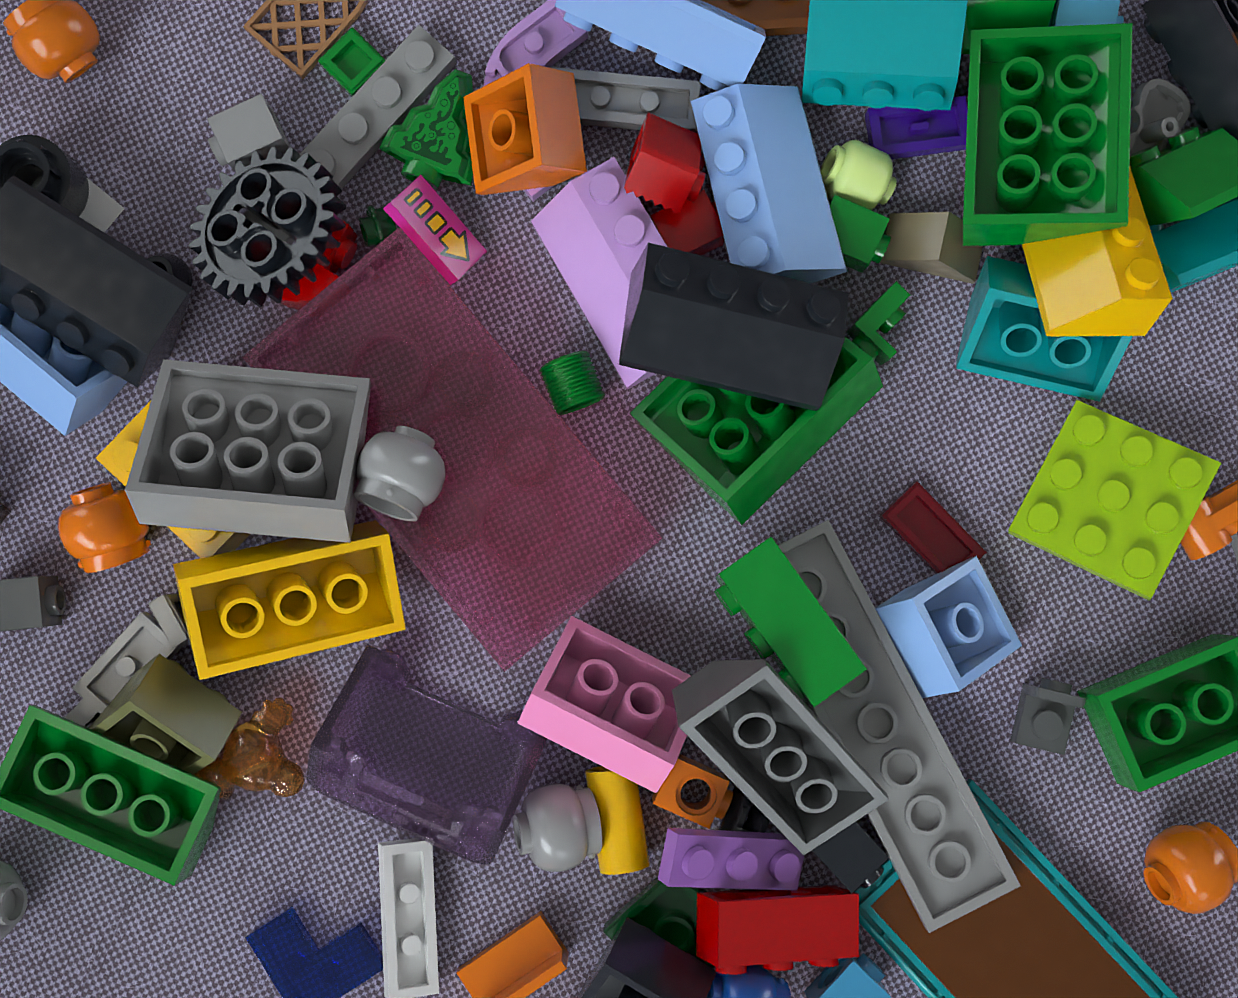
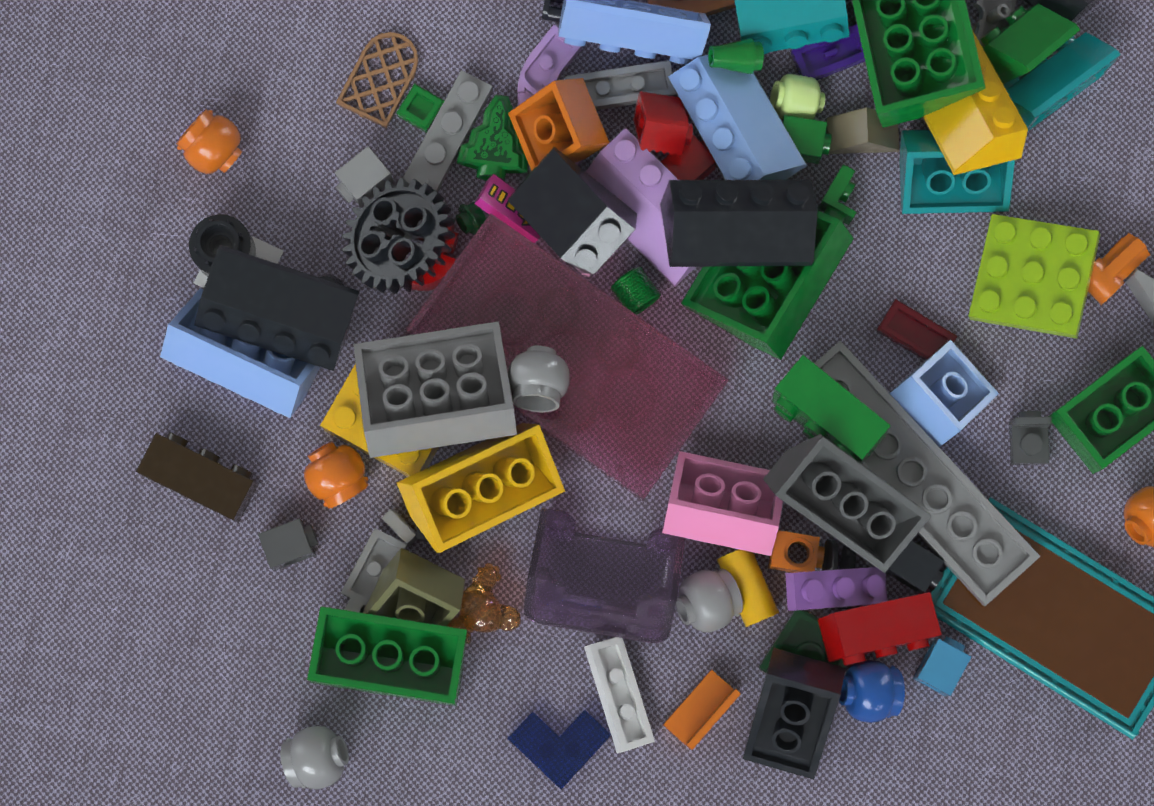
camera: 10 degrees left, 5 degrees down
(512, 255) = (573, 213): none -> black slope
(792, 96) = (737, 56): none -> green cone

